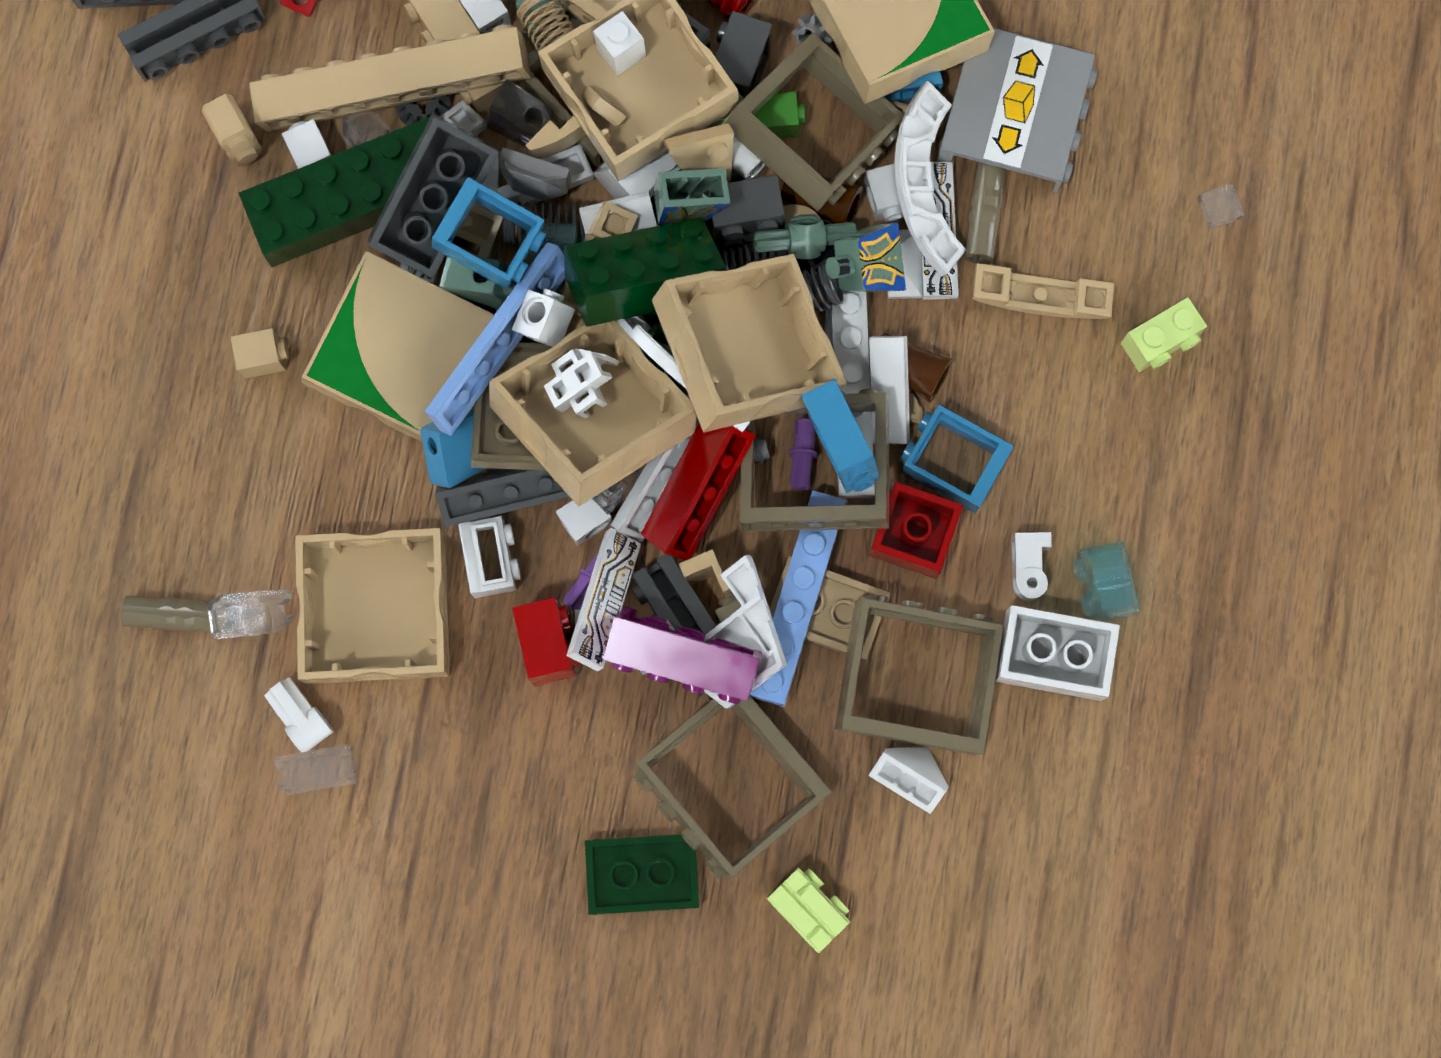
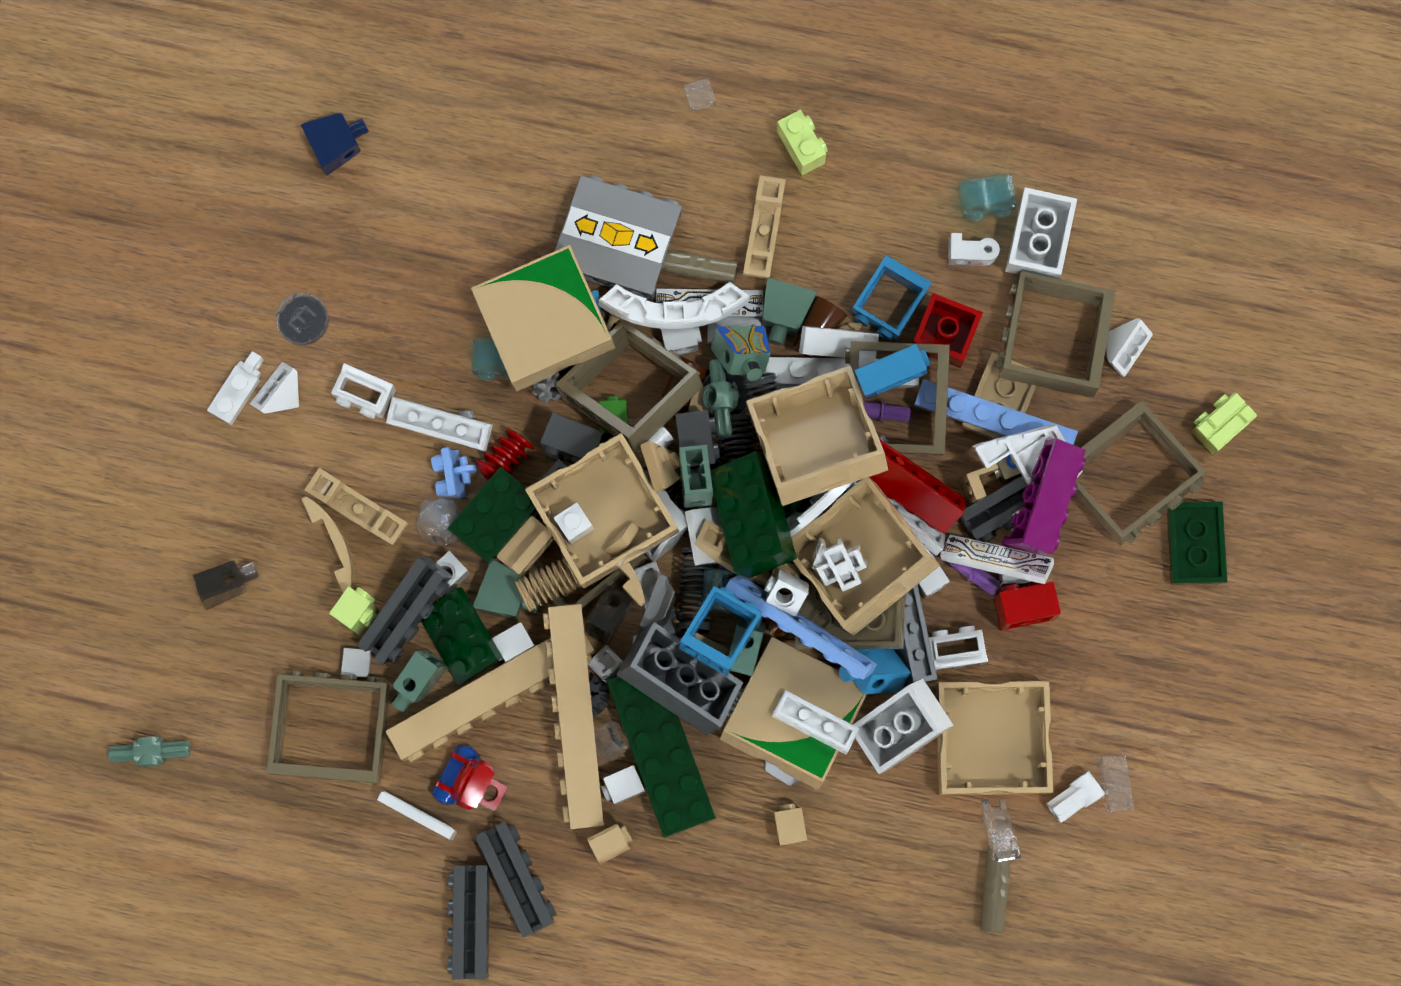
camera: 85 degrees left, 0 degrees up
(380, 367) = (815, 722): none -> white tile
(380, 480) = (901, 726): none -> white brick
(934, 321) = (785, 309): none -> sand green torso

